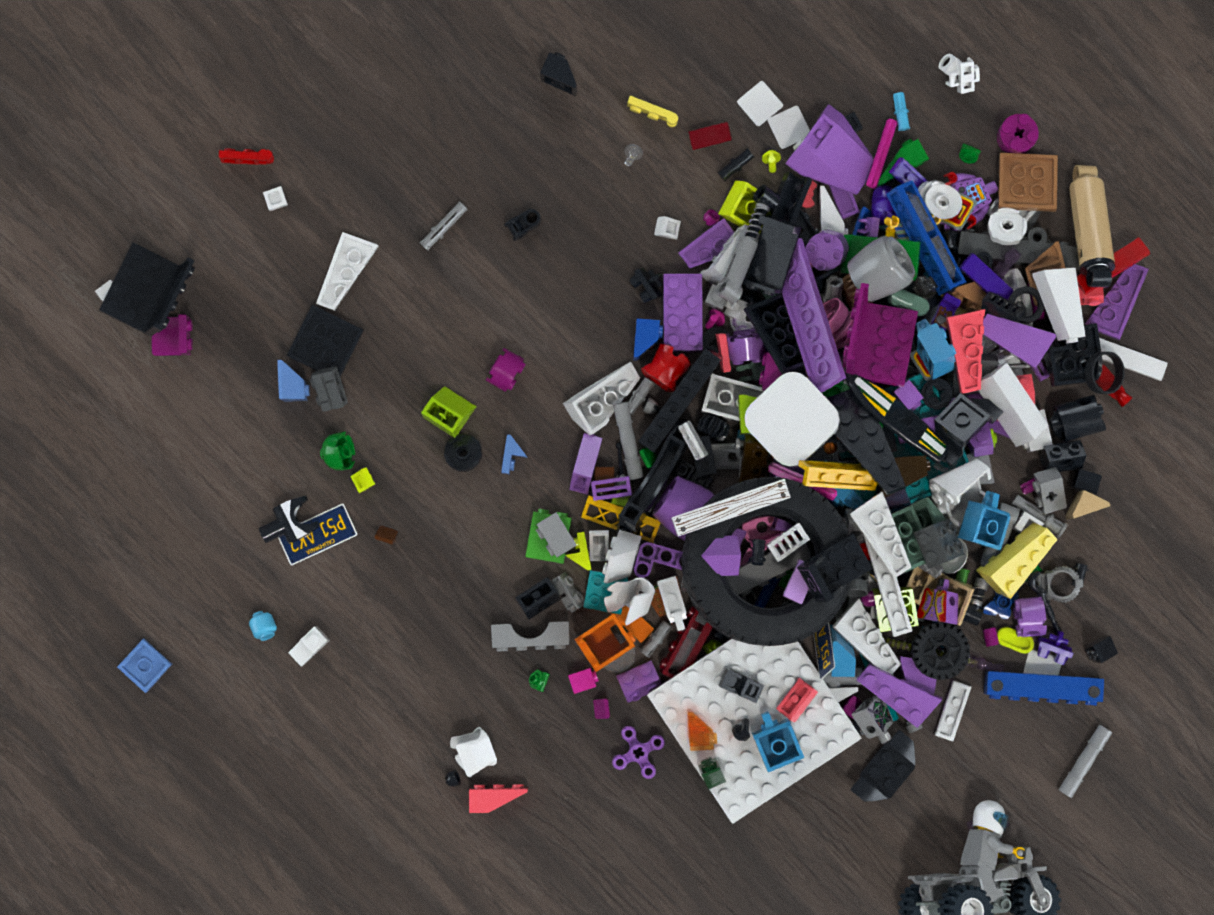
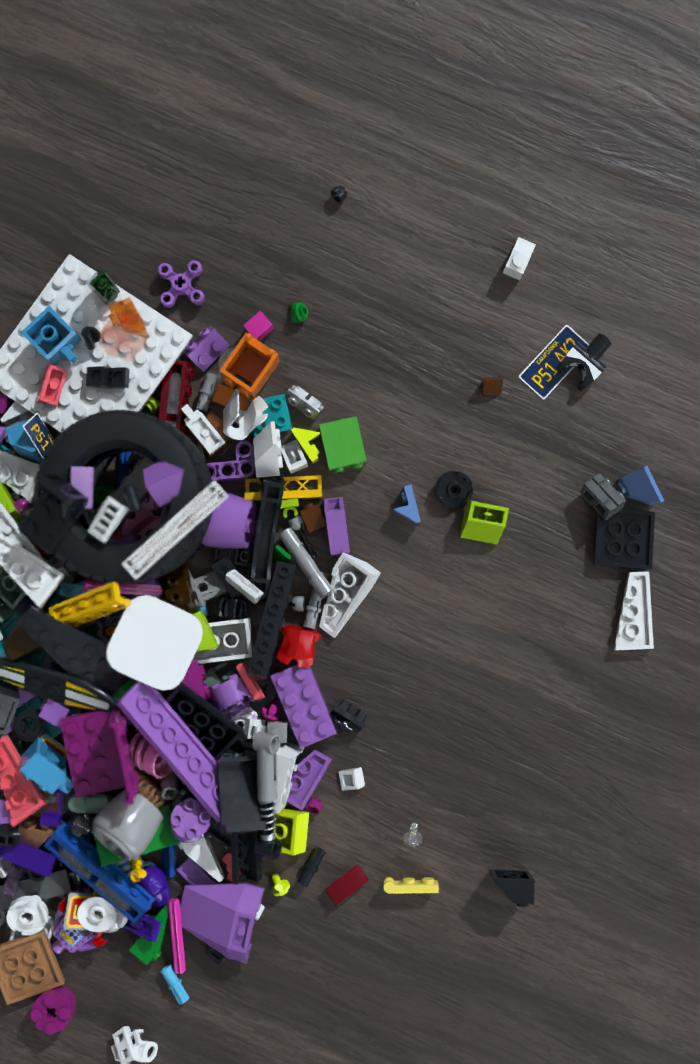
camera: 155 degrees right, 0 degrees up
(144, 665) = (659, 181): medium blue tile -> none
(262, 625) = (569, 258): medium azure head -> none
(338, 451) = (569, 442): green cylinder -> none
(362, 480) = (535, 426): neon yellow plate -> none
(427, 242) = (552, 714): light grey pin -> none
(473, 751) = (330, 222): white piece -> none
(488, 799) = (299, 188): coral slope -> none
(505, 369) = (447, 581): magenta brick -> none
(505, 636) = (344, 338): light grey arch -> none
(522, 224) = (488, 725): black piece -> none
(538, 598) = (329, 383): black brick -> none
(556, 535) = (336, 446): light grey brick -> none
(601, 708) = (230, 310): magenta slope -> none
(627, 486) = (302, 502): medium lavender tile -> none
(646, 336) = (328, 668): blue slope -> none
(760, 103) = (312, 935): white sticker -> none
(789, 127) = (276, 924): white sticker -> none
(871, 226) = (157, 860): medium lavender tile -> none
(969, 154) = (94, 969): green plate -> none

